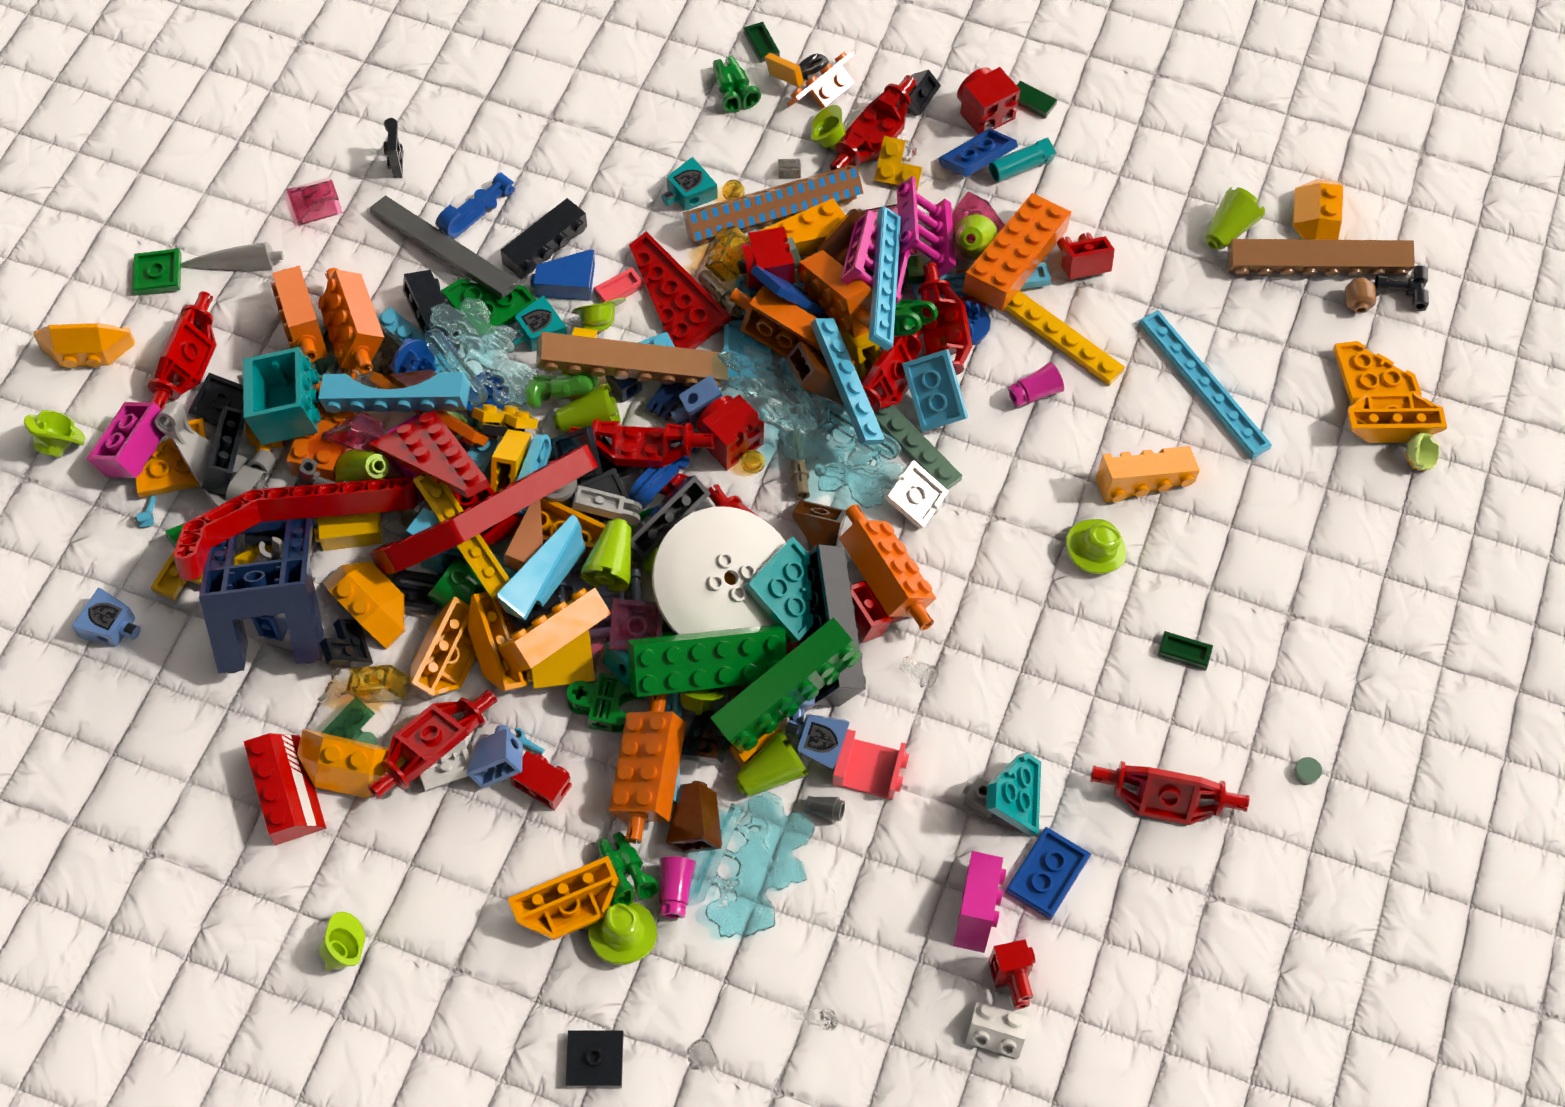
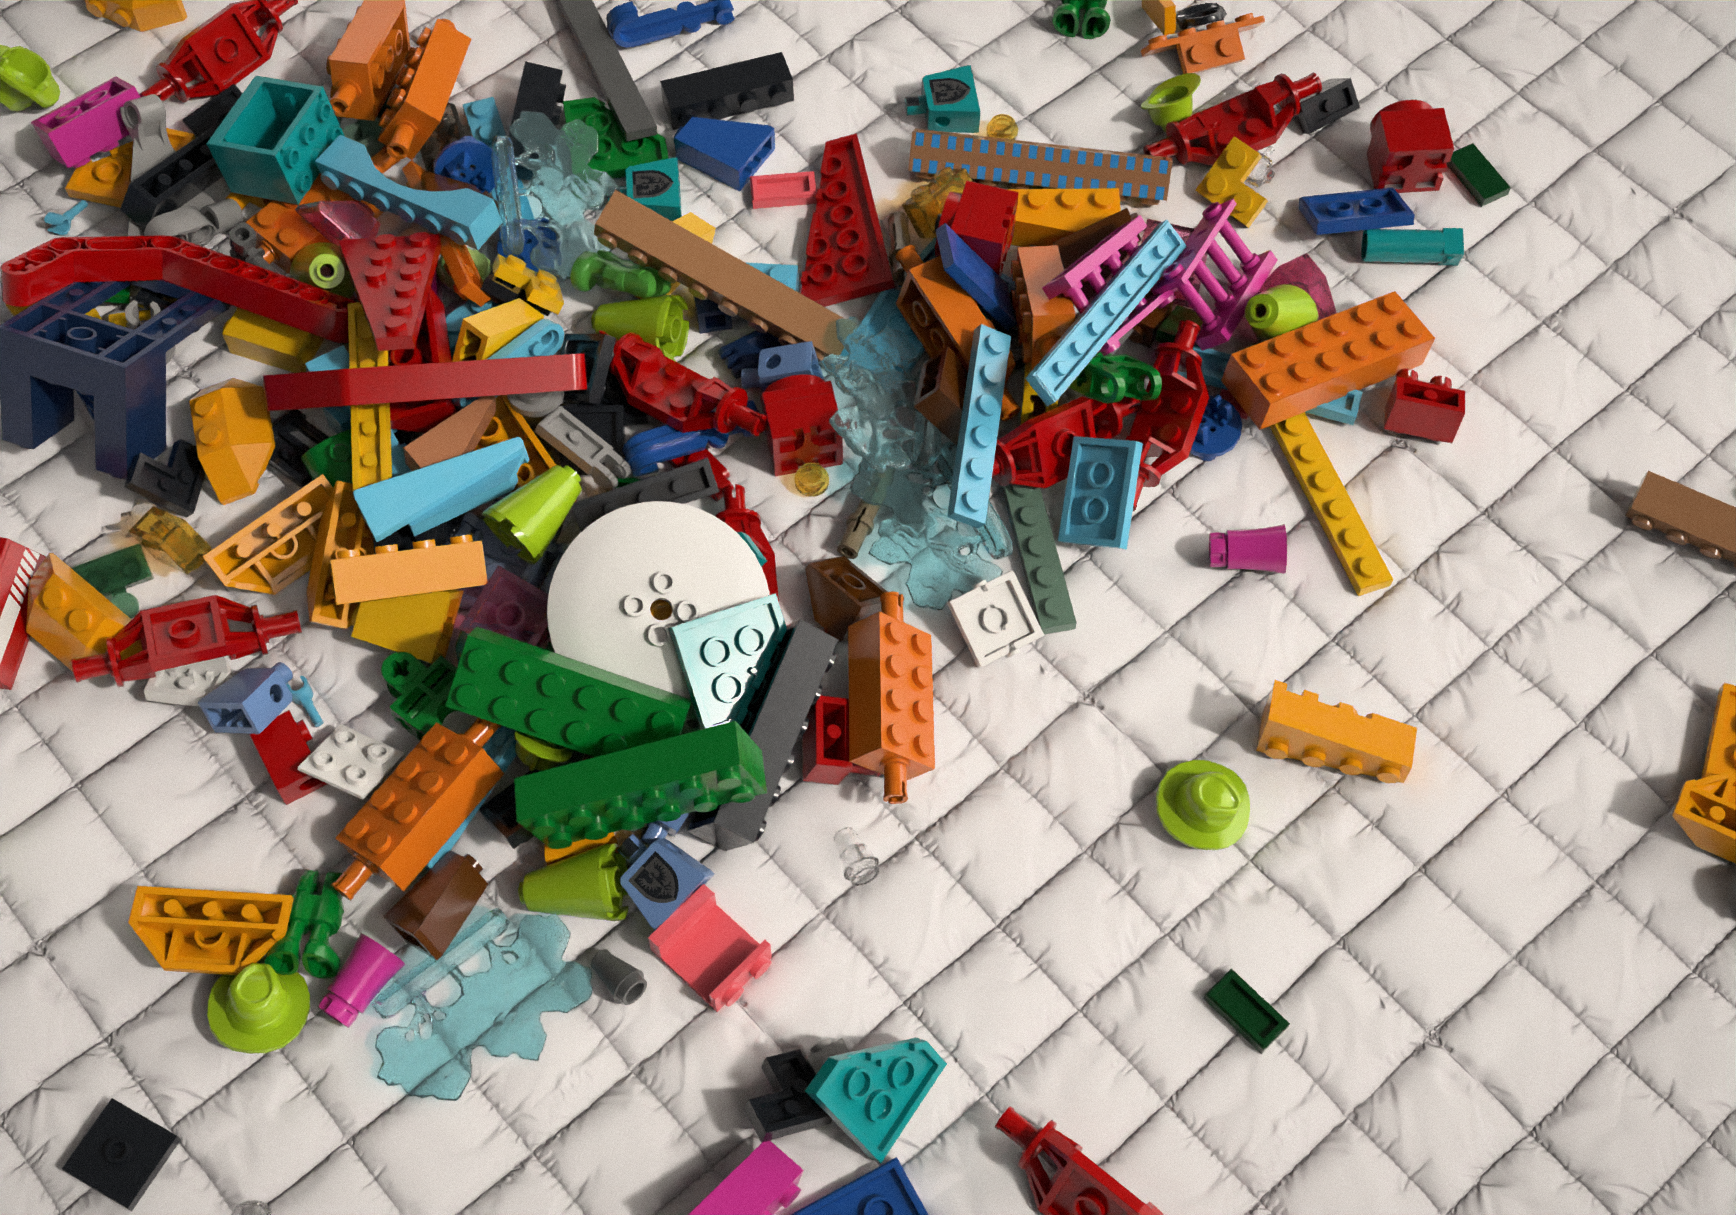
camera: 30 degrees right, 0 degrees up
(586, 762) = (351, 761): none -> white hinge
(598, 316) = (732, 212): lime piece -> none
(789, 168) = (1092, 132): clear smoke slope -> none
(795, 254) = (1021, 232): sand green tile -> none
(973, 823) = (790, 1107): none -> black plate
(1205, 384) = (1498, 657): medium azure tile -> none
(1233, 217) = (1670, 444): lime cone -> none

